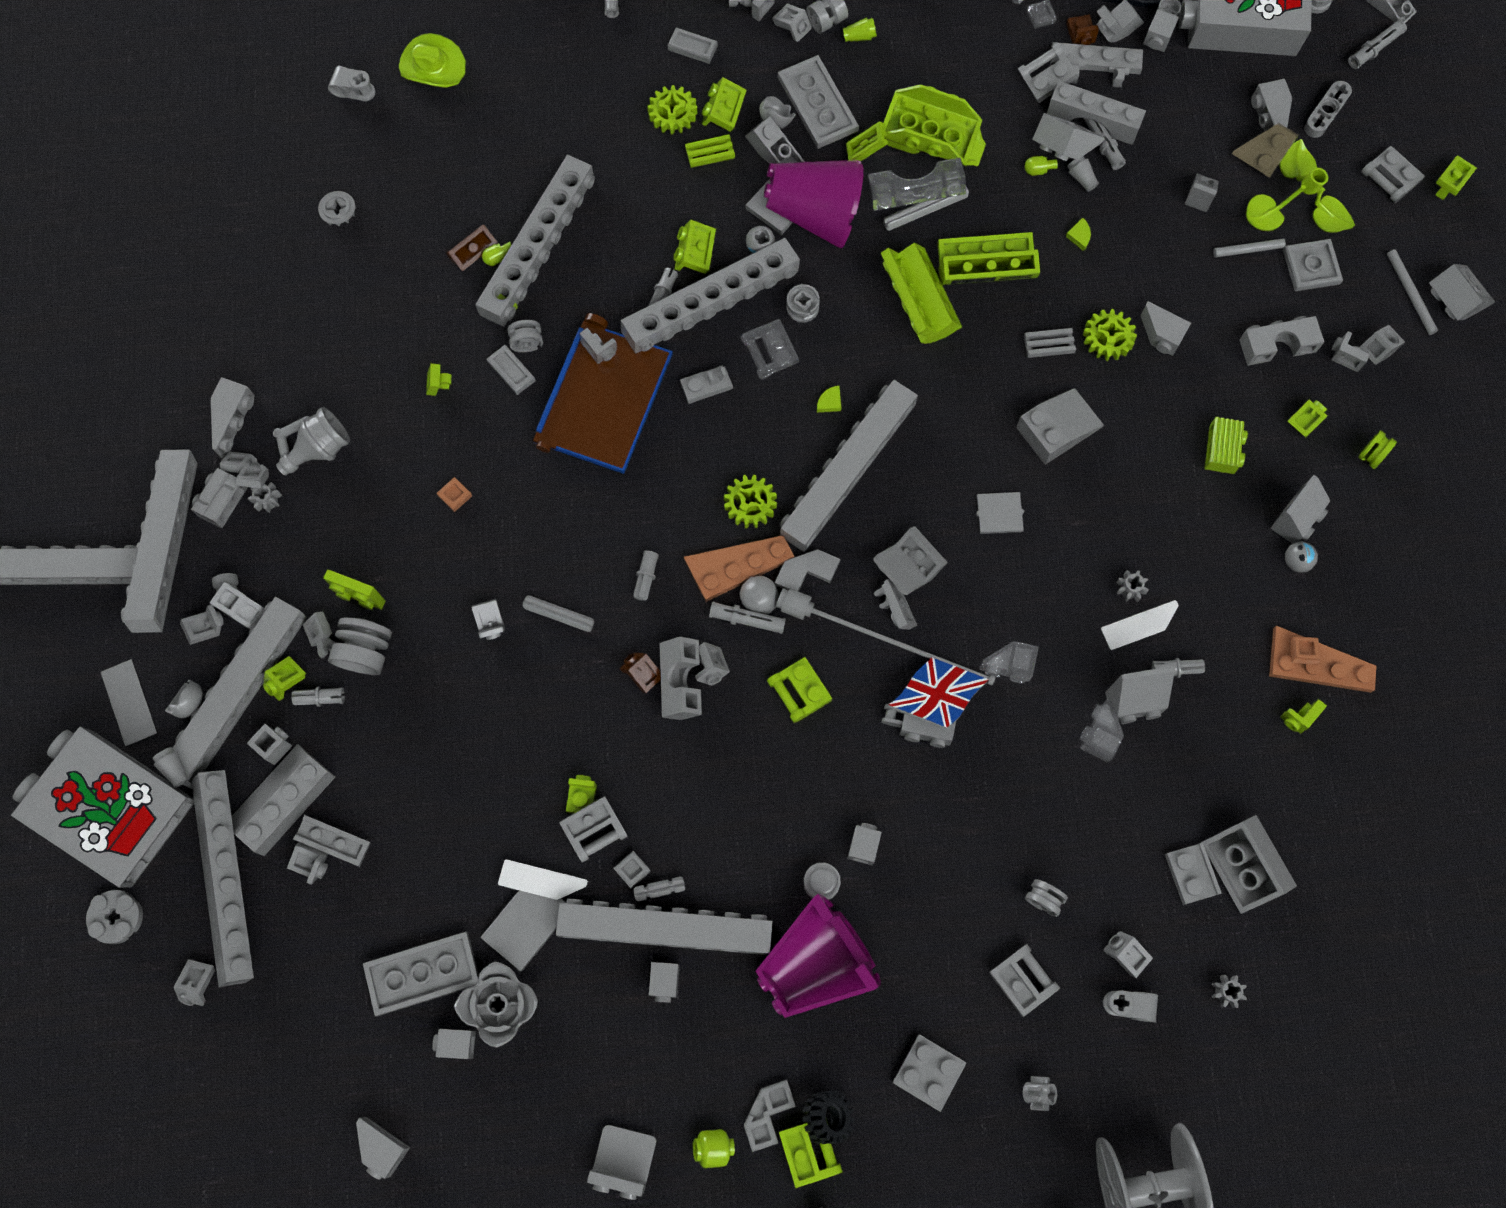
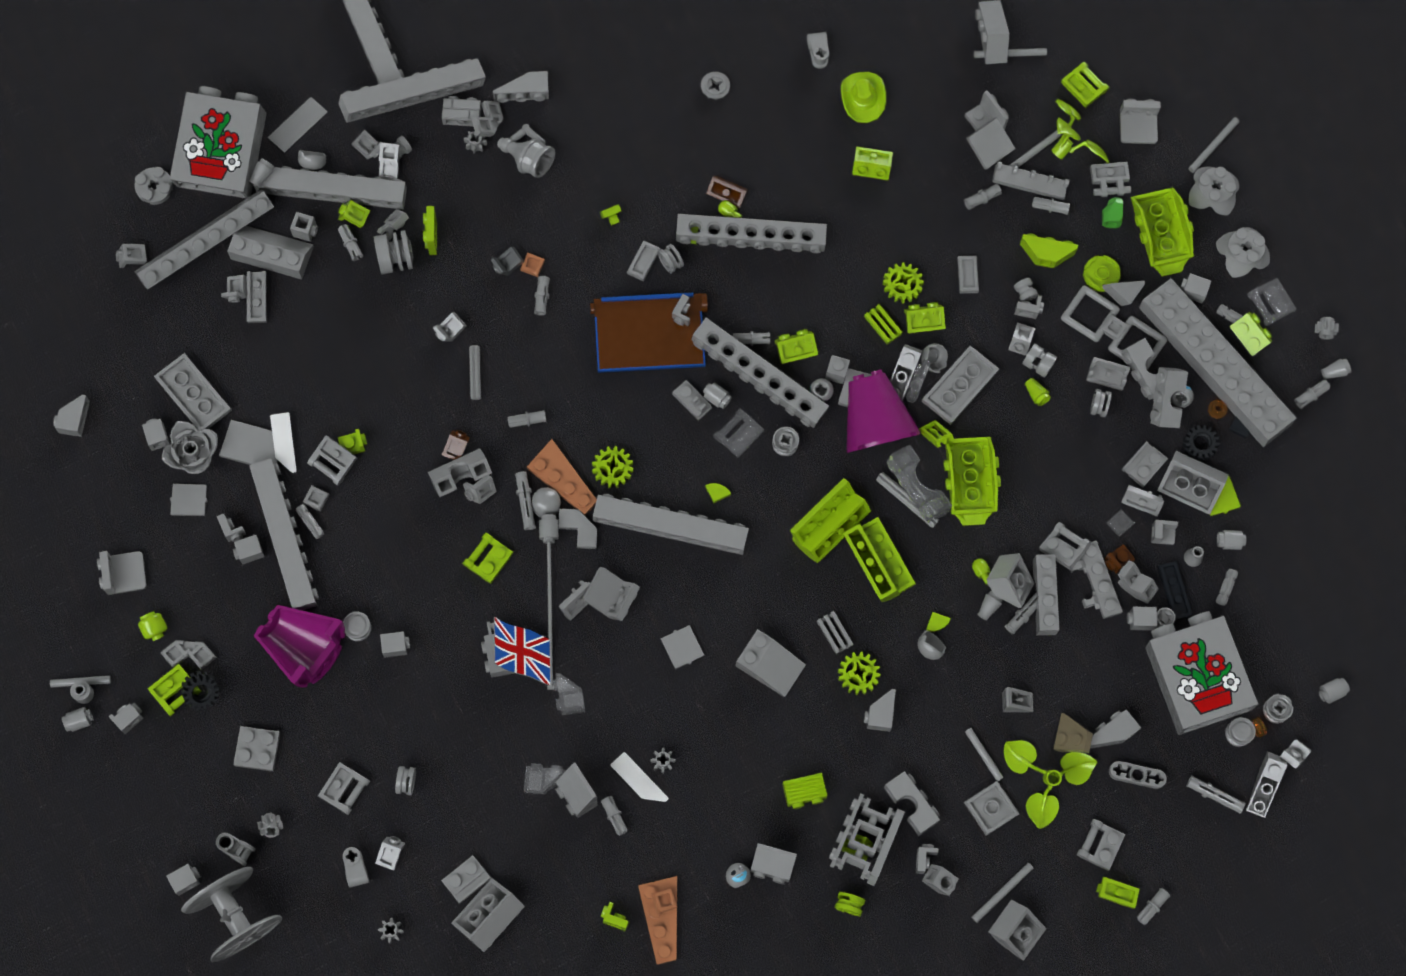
camera: 60 degrees right, 0 degrees up
(437, 519) = (507, 261): none -> dark grey bracket
(498, 498) = (541, 295): none -> light grey pin
(516, 84) = (872, 163): none -> lime bracket
(561, 1035) = (188, 499): none -> light grey piece
(621, 996) = (227, 526): none -> light grey bracket
(715, 353) = (717, 395): none -> light grey brick
(743, 214) = (837, 369): none -> light grey brick
(798, 133) = (917, 381): none -> clear plate
(1056, 1148) = (237, 850): none -> light grey piece
(1108, 249) = (930, 646): none -> light grey hair
(1322, 384) = (881, 845): none -> light grey fence
(1478, 151) = (1153, 906): none -> light grey axle

